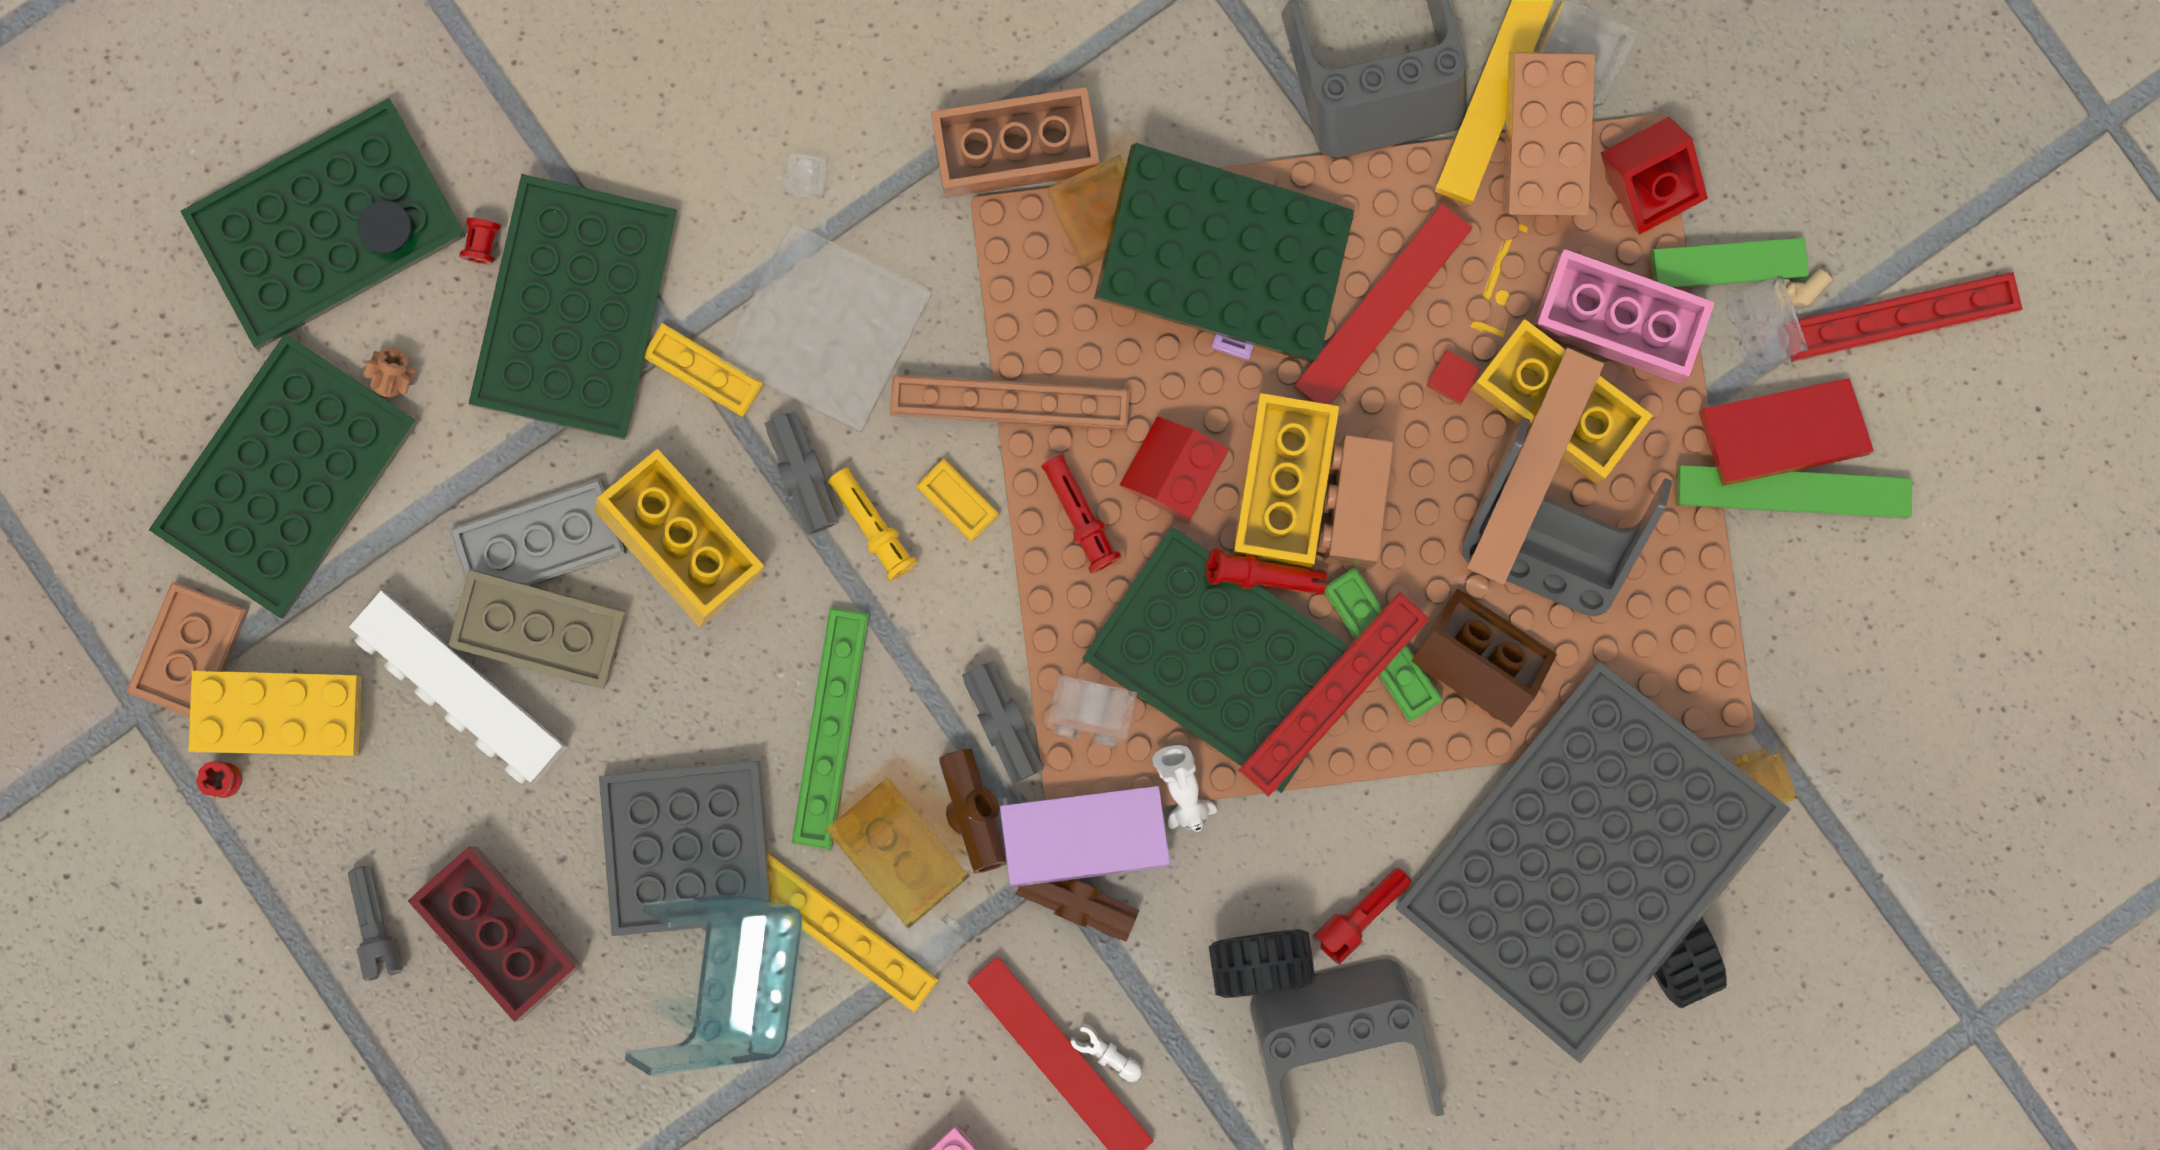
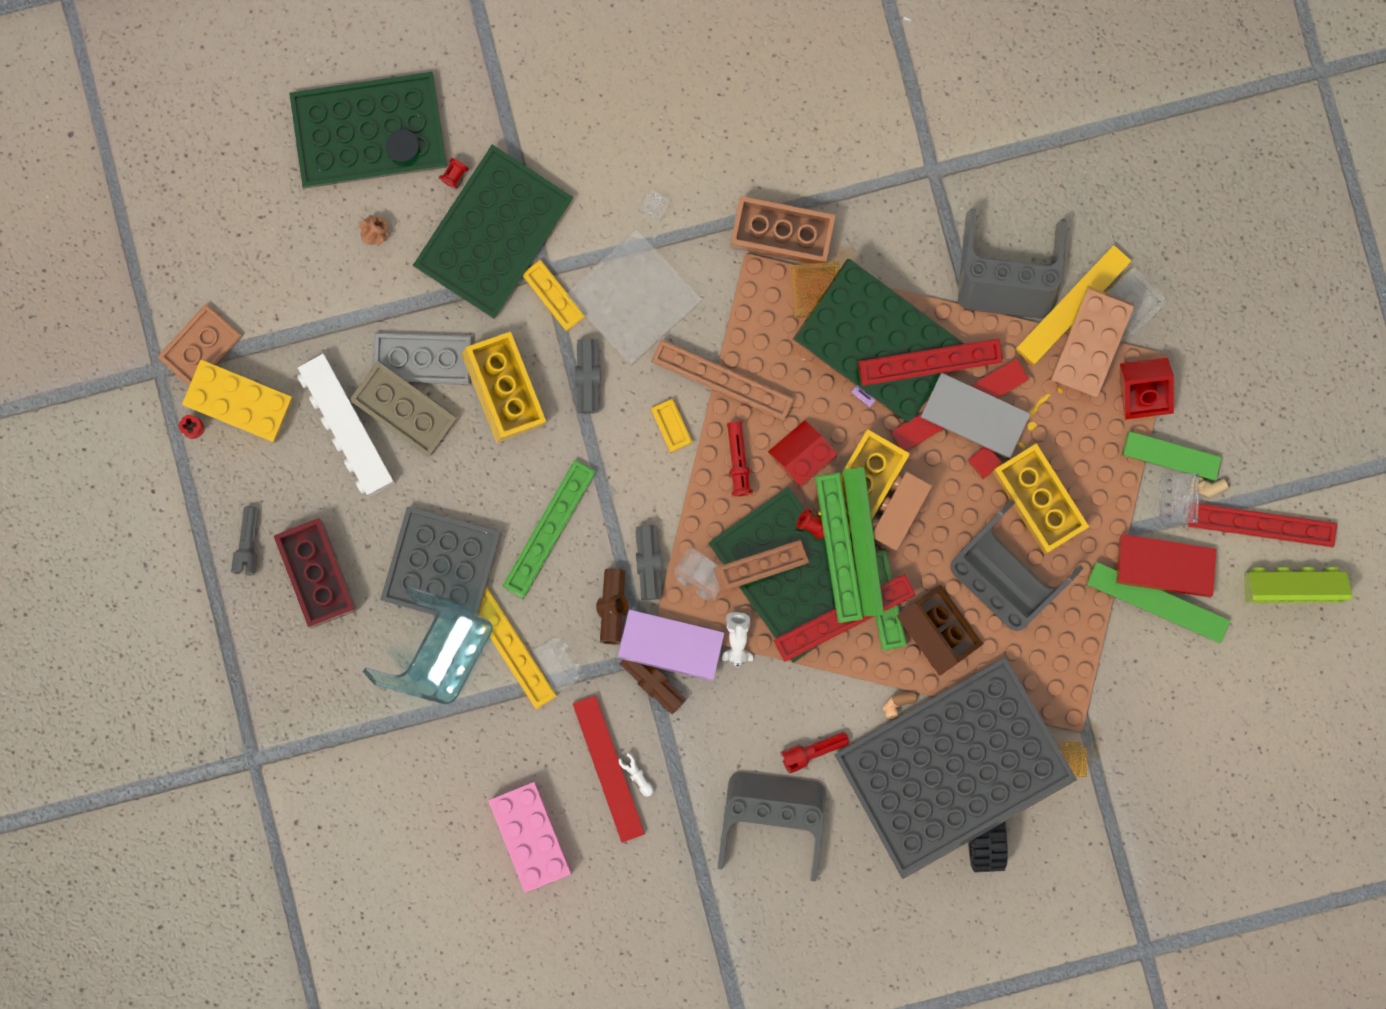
camera: 30 degrees right, 0 degrees up
(283, 476) = (291, 267): dark green plate -> none
(882, 540) = (619, 431): yellow pin -> none
(897, 853) = (560, 613): clear yellow slope -> none
(1178, 663) = (761, 565): none -> nougat tile
(1262, 963) = (744, 755): black tyre -> none
(1286, 590) = (838, 547): none -> bright green tile
(1314, 256) = (930, 361): none -> red tile
(1321, 567) = (863, 541): none -> bright green tile
(1413, 312) = (975, 415): none -> light grey tile
(1458, 790) = (891, 706): none -> arm
(1535, 465) = (1009, 530): nougat tile -> none
(1623, 316) = (1095, 463): bright pink brick -> none
(1993, 389) = (1297, 587): none -> lime slope

